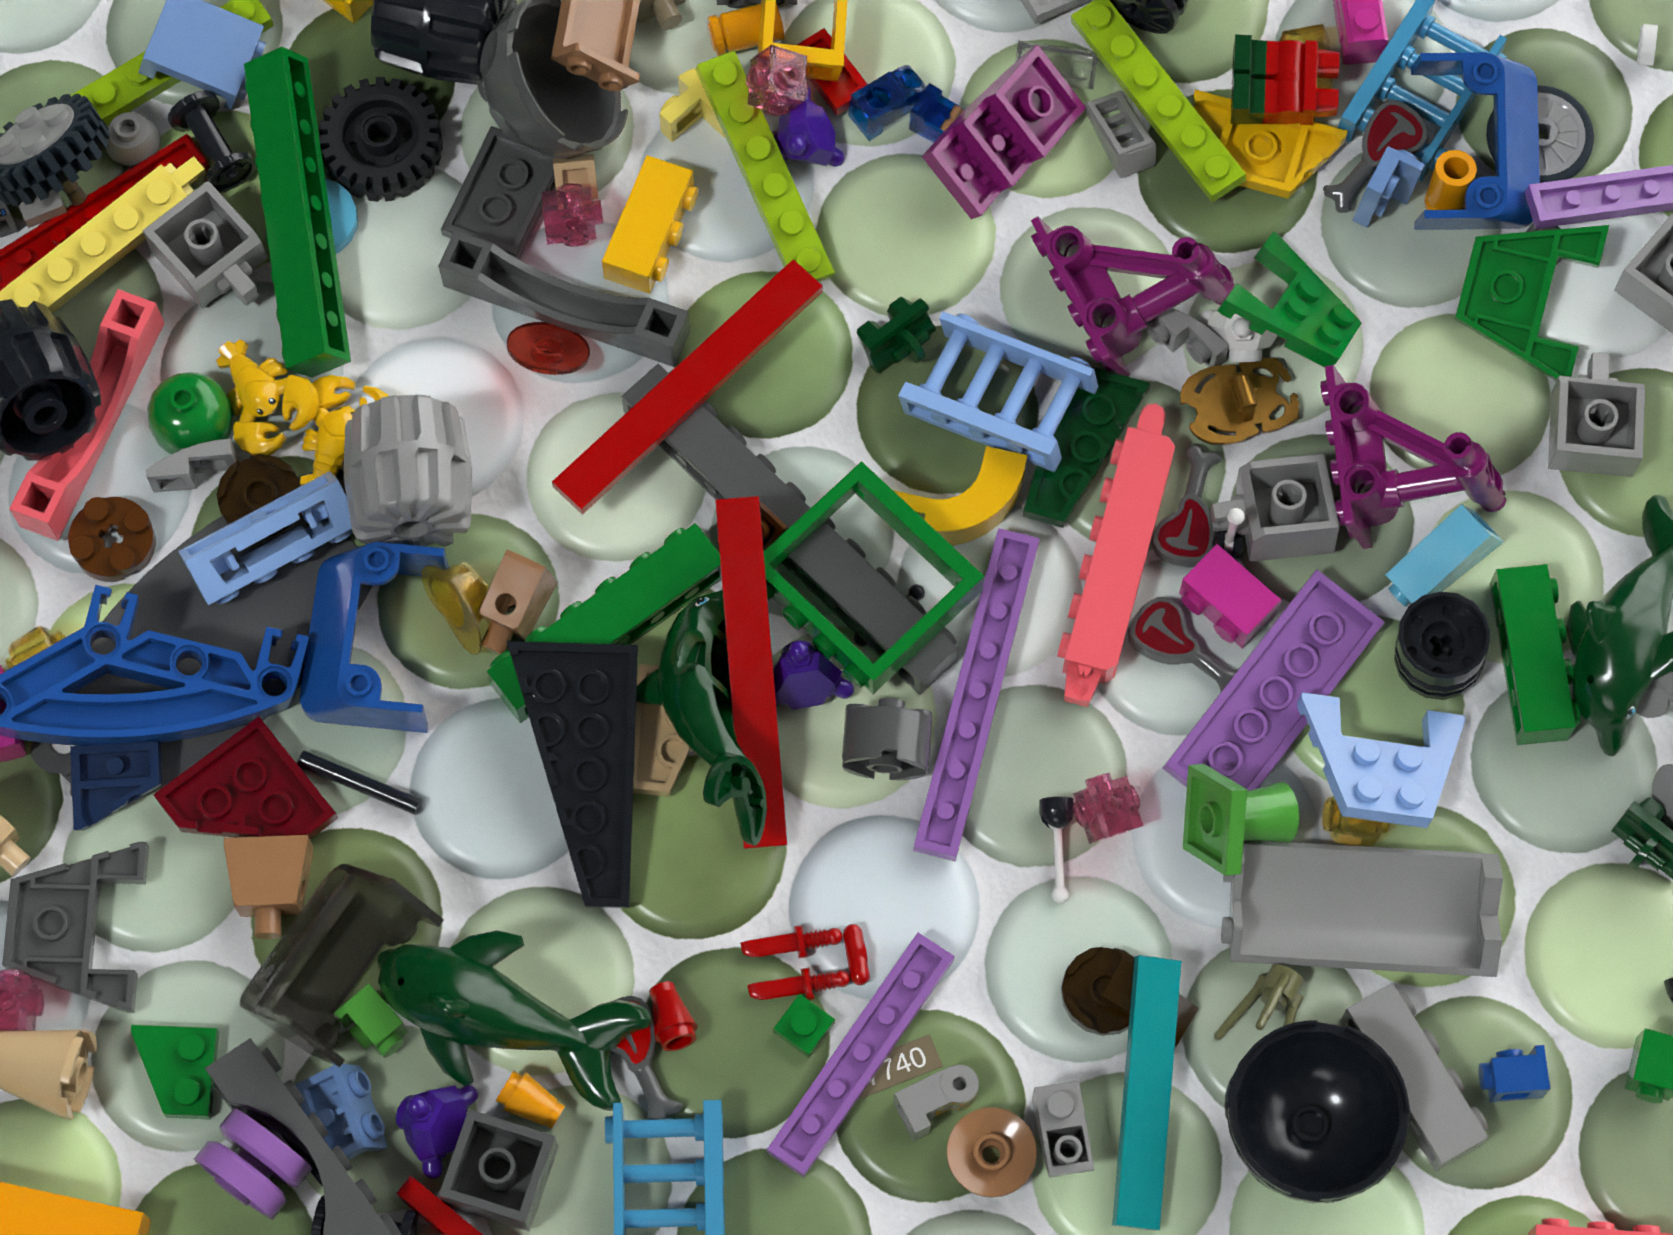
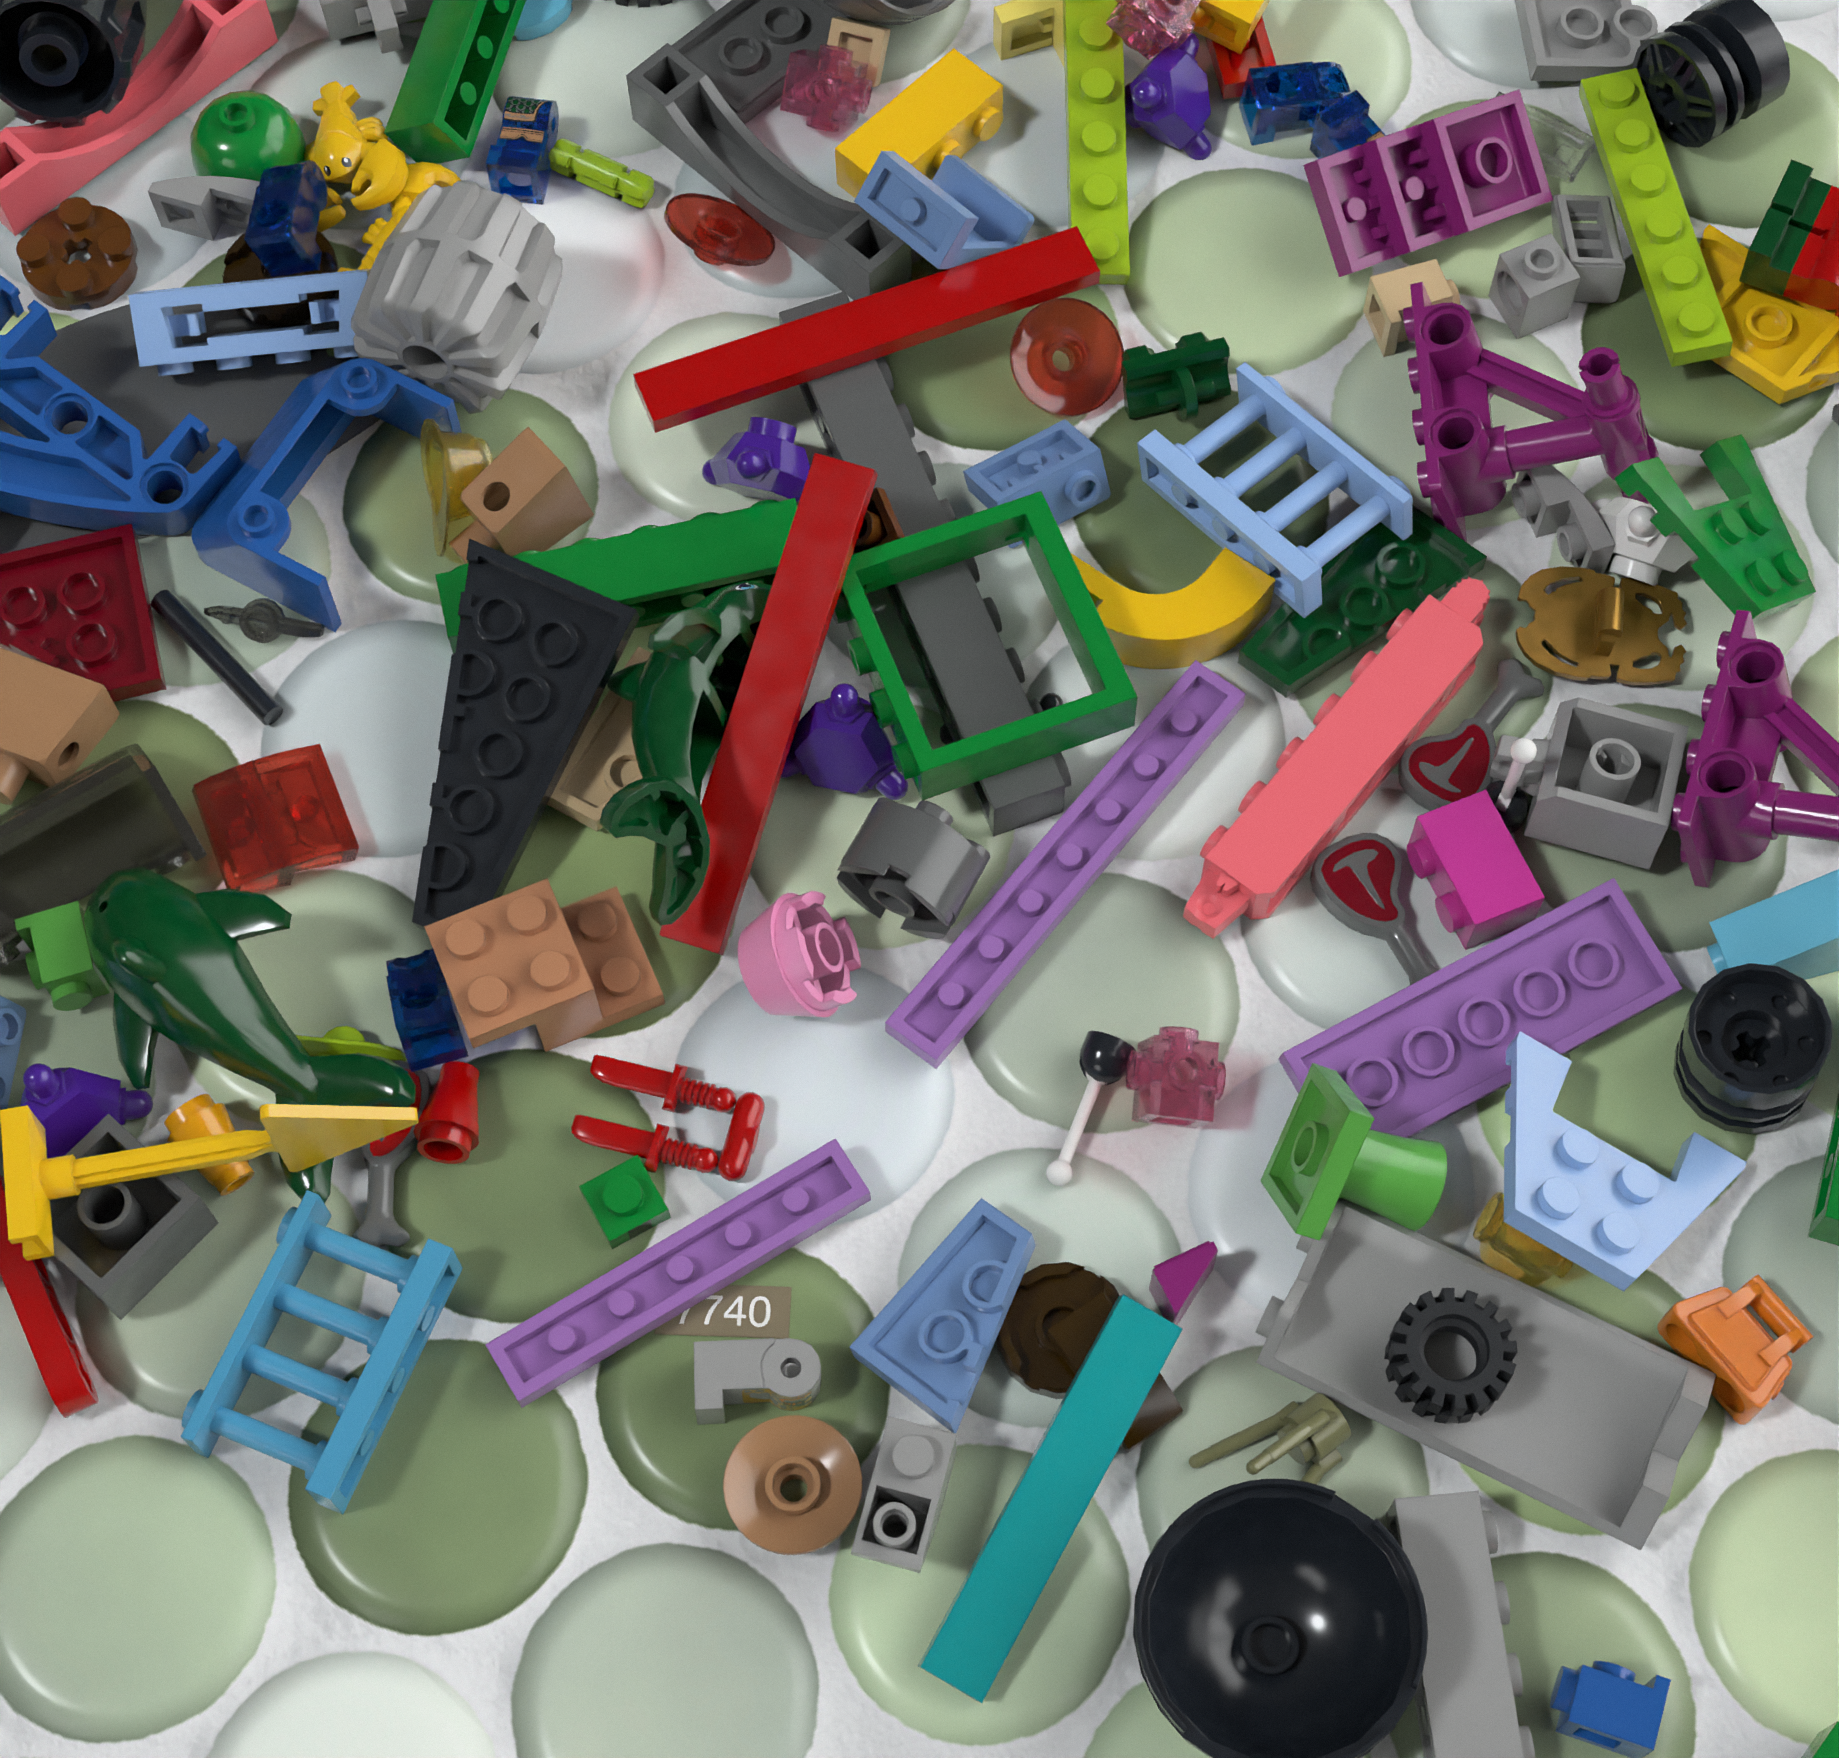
camera: 25 degrees right, 5 degrees down
(255, 458) = (287, 218): none -> clear blue leg
(378, 745) = (264, 621): none -> clear smoke piece
(382, 339) = (523, 148): none -> clear blue leg
(442, 335) = (601, 173): none -> lime axle
(457, 1166) = (297, 1132): none -> yellow piece
(459, 875) = (275, 819): none -> clear red slope
(581, 1001) = (346, 1041): none -> lime piece
(624, 957) = (424, 1011): none -> clear blue leg
(661, 506) = (761, 462): none -> dark purple rock
(686, 899) = (544, 965): none -> nougat bracket
(699, 280) = (944, 218): none -> medium blue panel
(838, 345) = (1092, 351): none -> clear red dish
(841, 440) = (1053, 461): none -> medium blue bracket
(843, 828) = (798, 958): none -> bright pink cone
(1015, 224) = (1391, 293): none -> tan brick
(1036, 1010) = (948, 1315): none -> medium blue wing
(1101, 179) = (1534, 286): none -> light grey brick
(1163, 932) = (1180, 1279): none -> magenta slope
(1349, 884) = (1478, 1327): none -> black tyre
(1497, 831) = (1728, 1340): none -> orange piece

